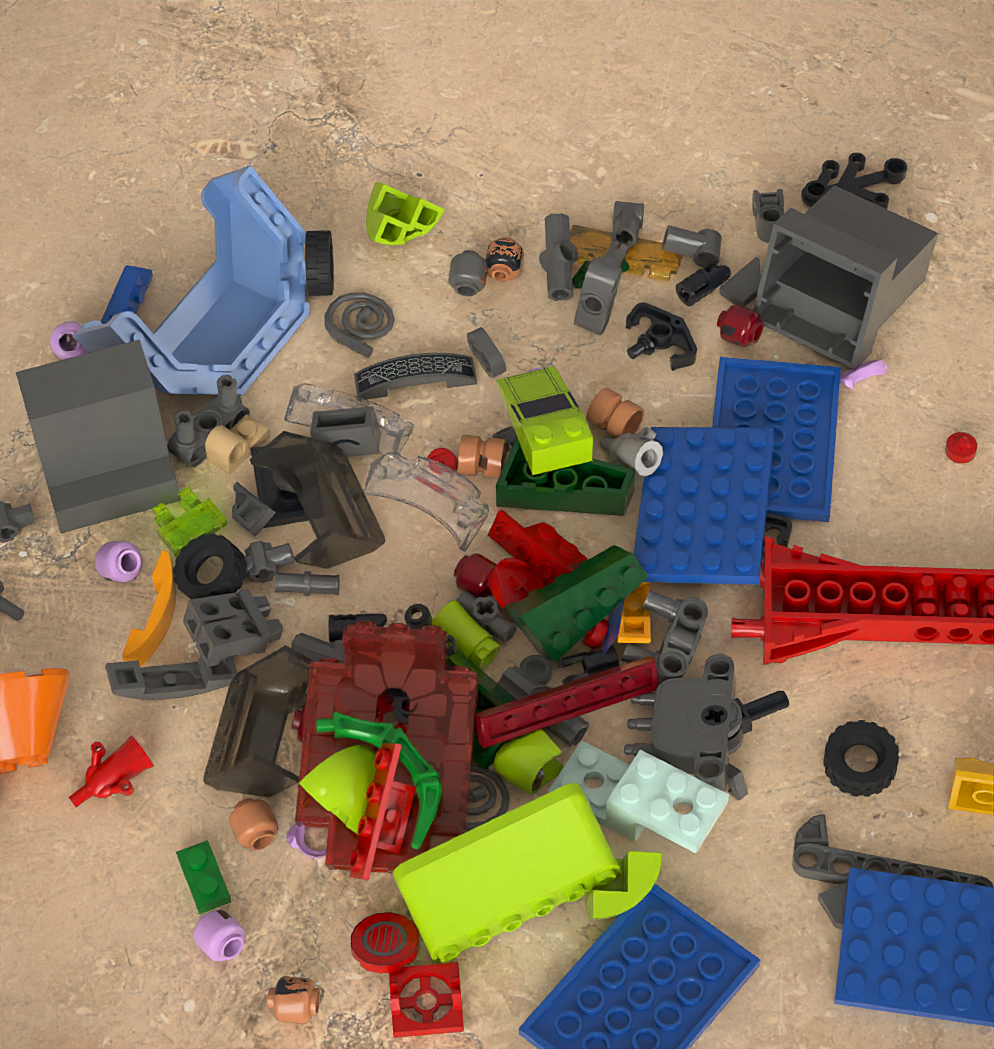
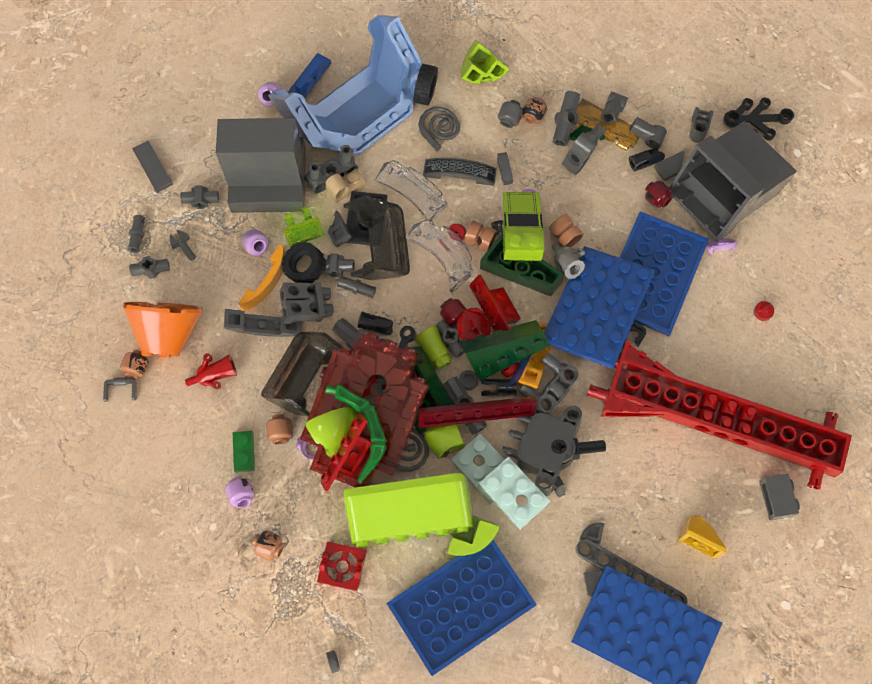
camera: 15 degrees right, 15 degrees up
(350, 429) = (408, 197): dark grey brick -> none
(385, 942) = (329, 525): tile -> none
(663, 333) = (614, 184): black piece -> none
(857, 782) = (644, 481): black tyre -> none

